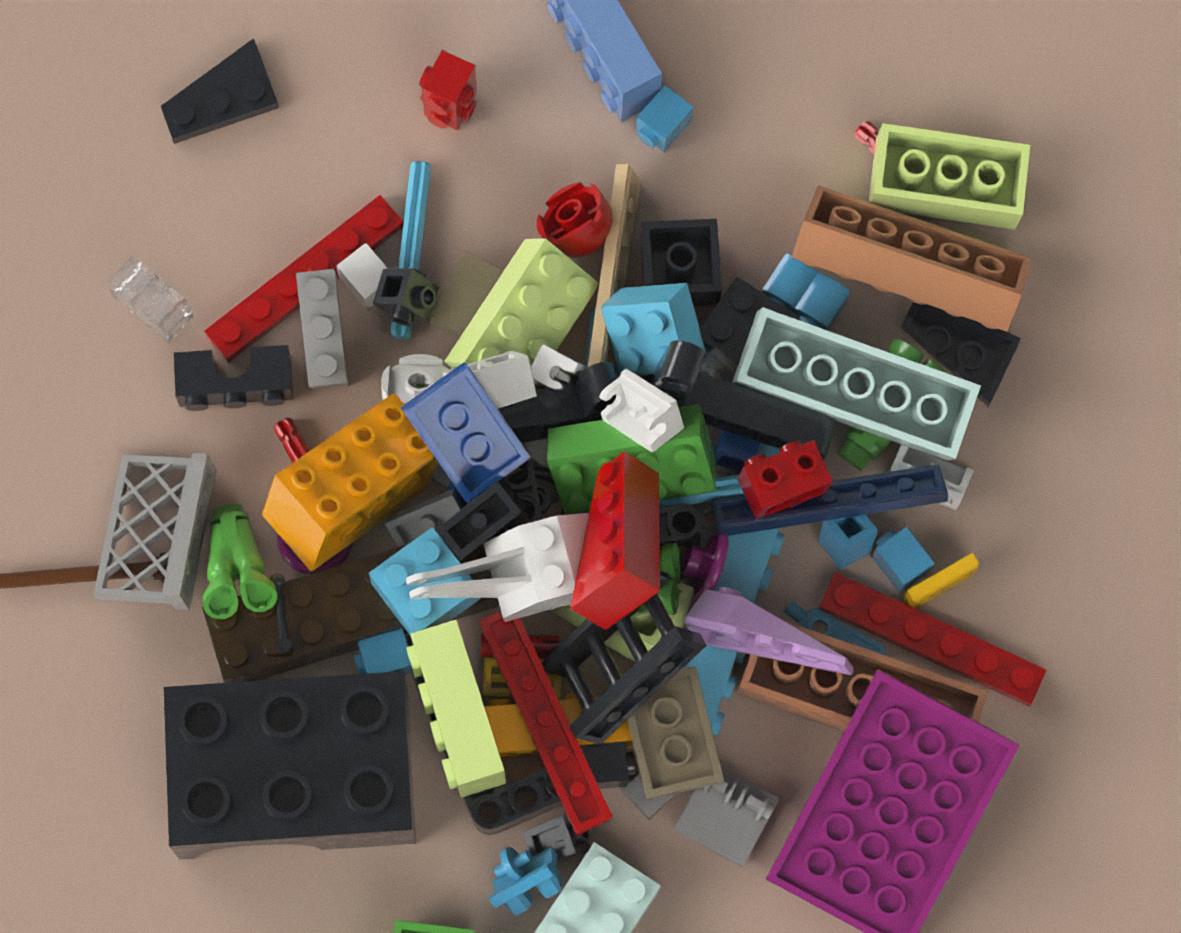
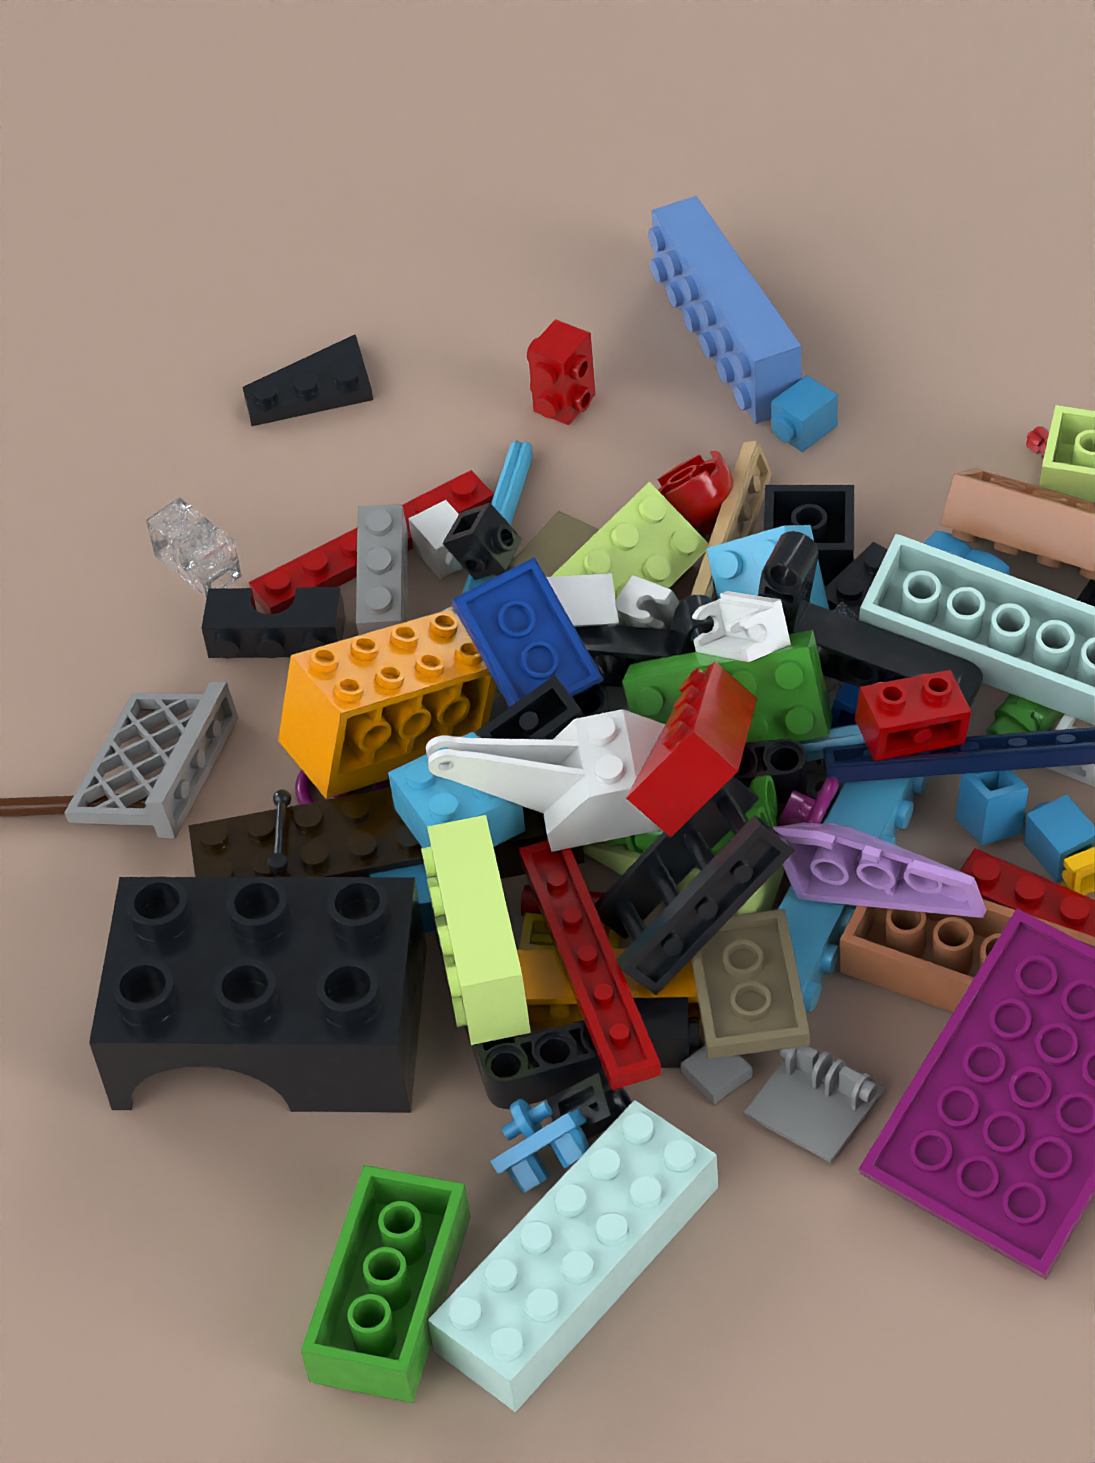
camera: 15 degrees right, 25 degrees down
(235, 557) = (237, 775): bright green piece -> none

